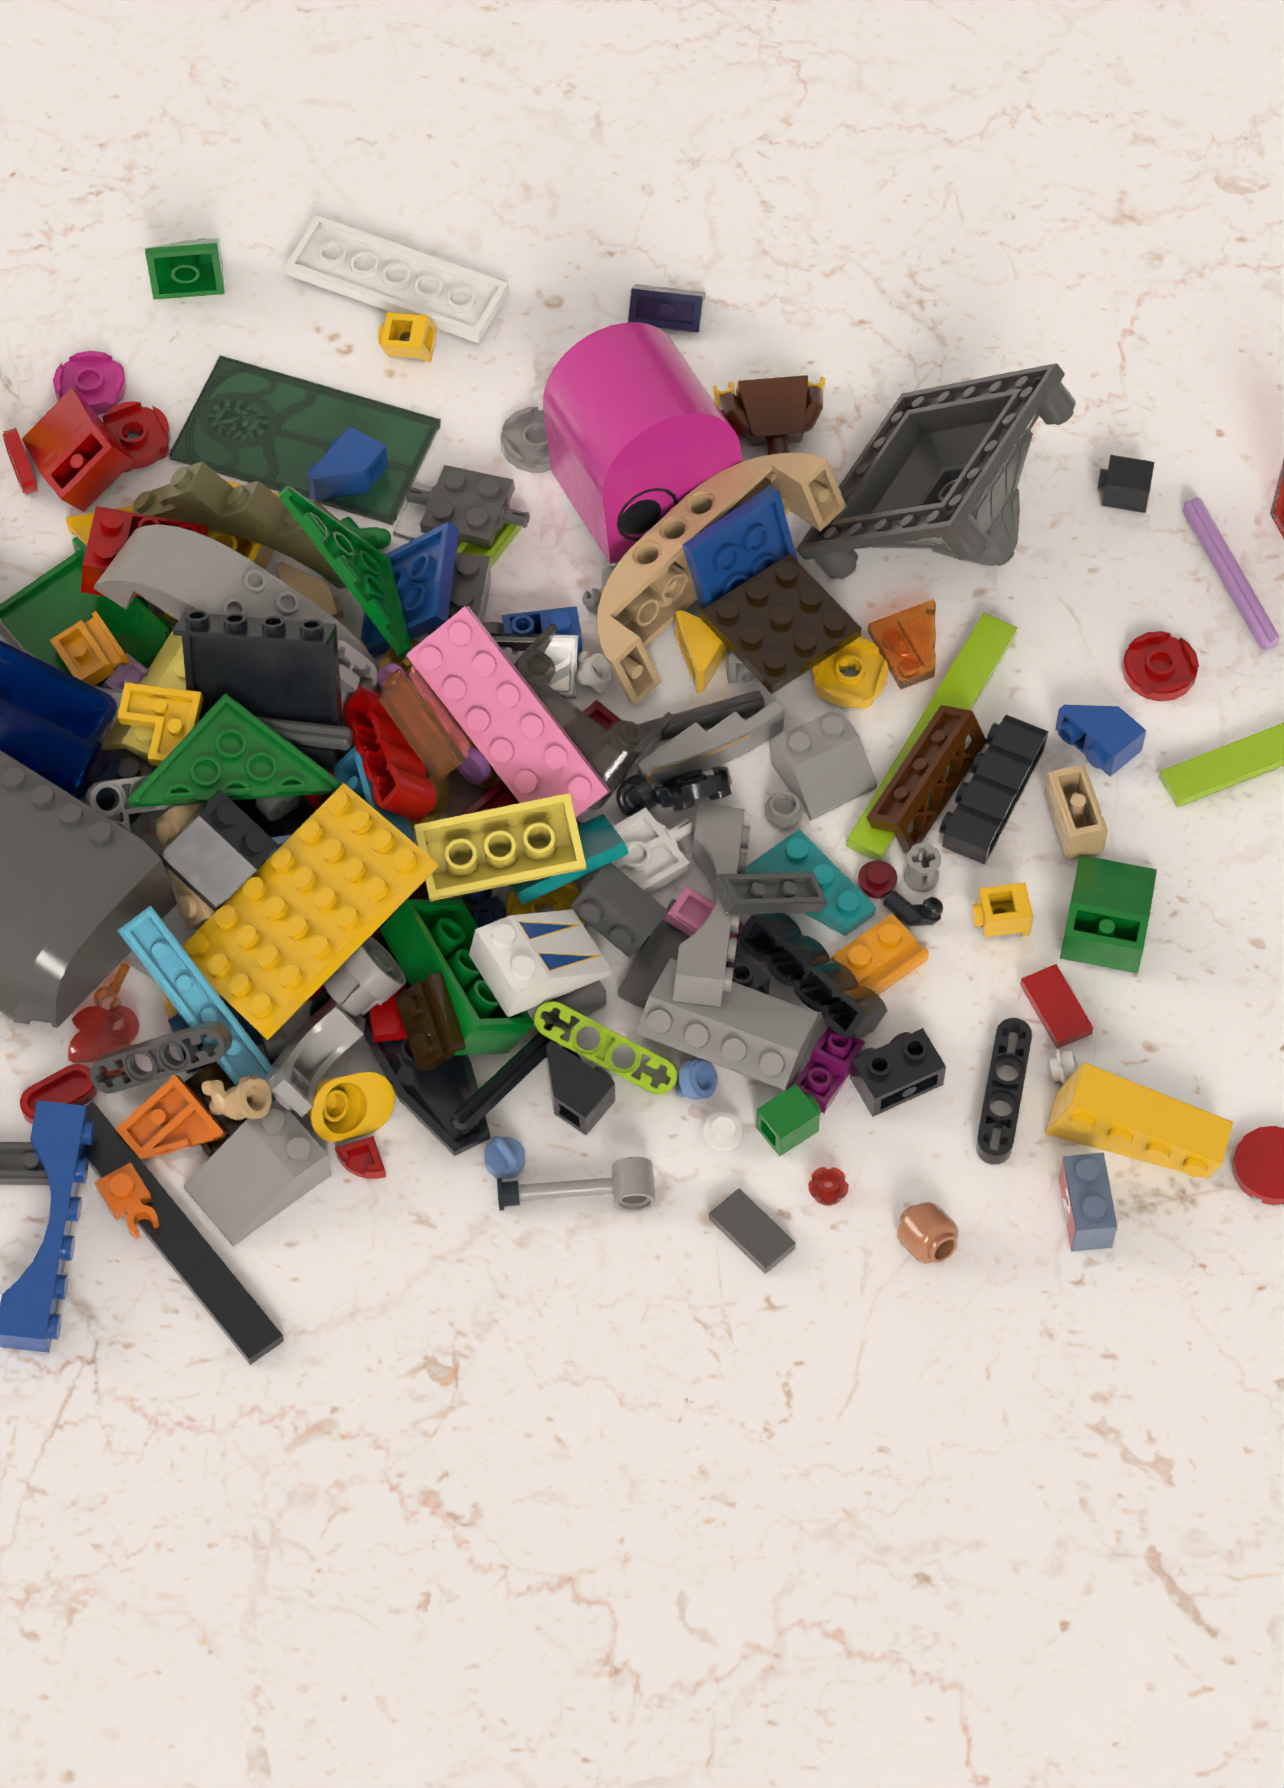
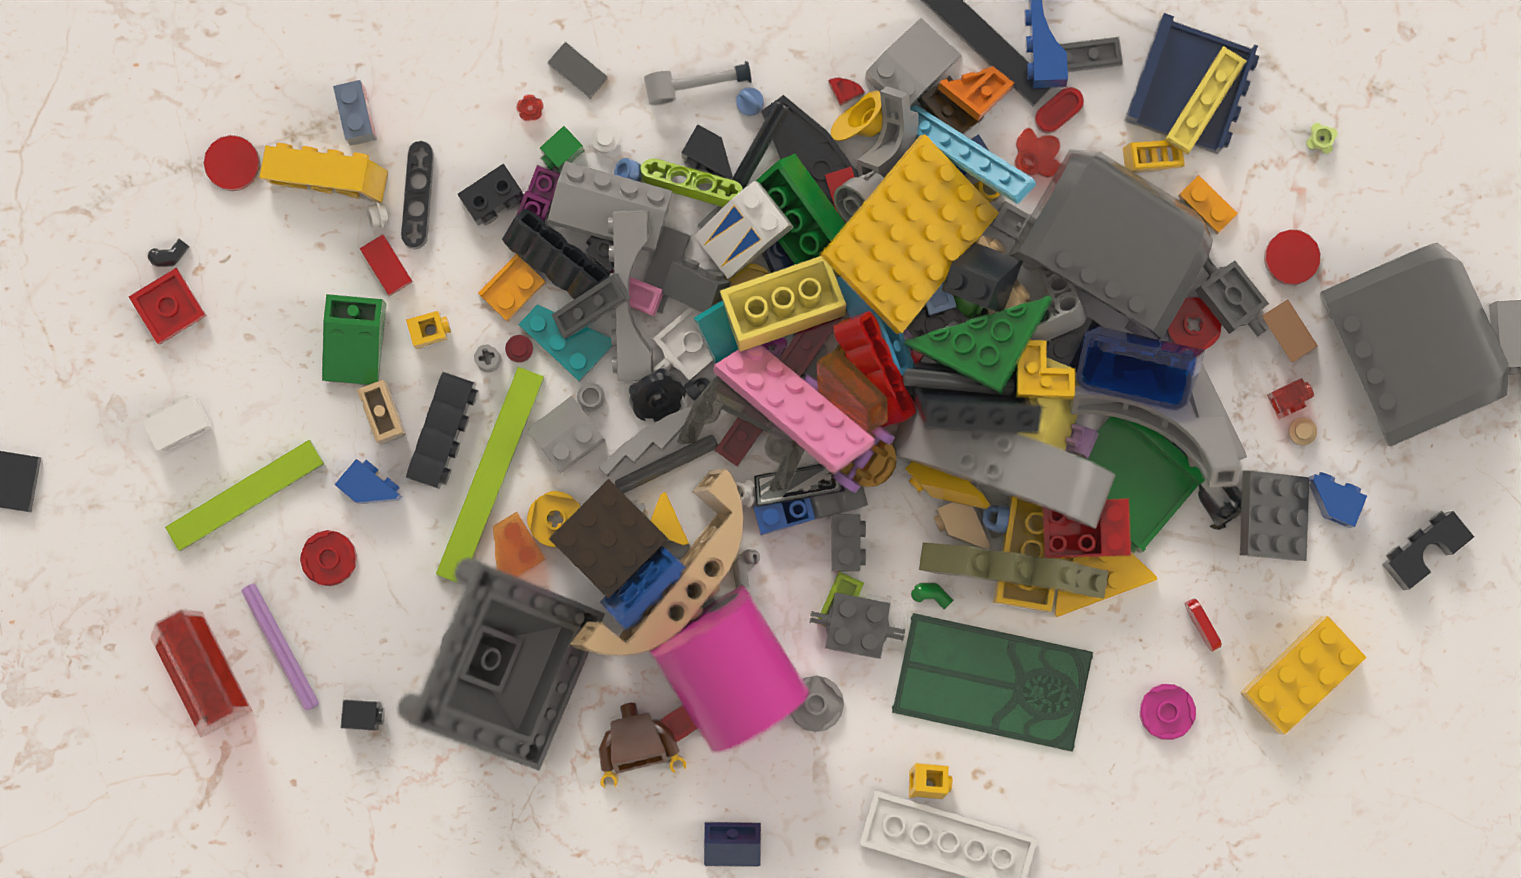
camera: 170 degrees right, 25 degrees up
(76, 451) = (1163, 633): red slope -> none
(89, 650) = (1113, 452): light orange plate -> none
(113, 989) = (1039, 191): clear orange hand -> none
(127, 1195) = (997, 34): orange plate -> none
(152, 423) = (1139, 662): red plate -> none
(162, 1062) = (992, 127): dark grey beam -> none
(186, 269) = (1111, 827): green slope -> none
(247, 1100) = (929, 97): tan piece -> none
(348, 467) = (951, 649): blue slope -> none
(350, 660) = (914, 434): light grey beam -> none
(358, 565) = (922, 529): green tile -> none
(424, 585) = (886, 531): blue plate -> none
(430, 1022) = (812, 171): dark brown plate -> none
(916, 914) = (491, 324): black arm -> none
(926, 771) = (491, 432): reddish brown fence -> none
(927, 1233) = (460, 78): nougat head -> none

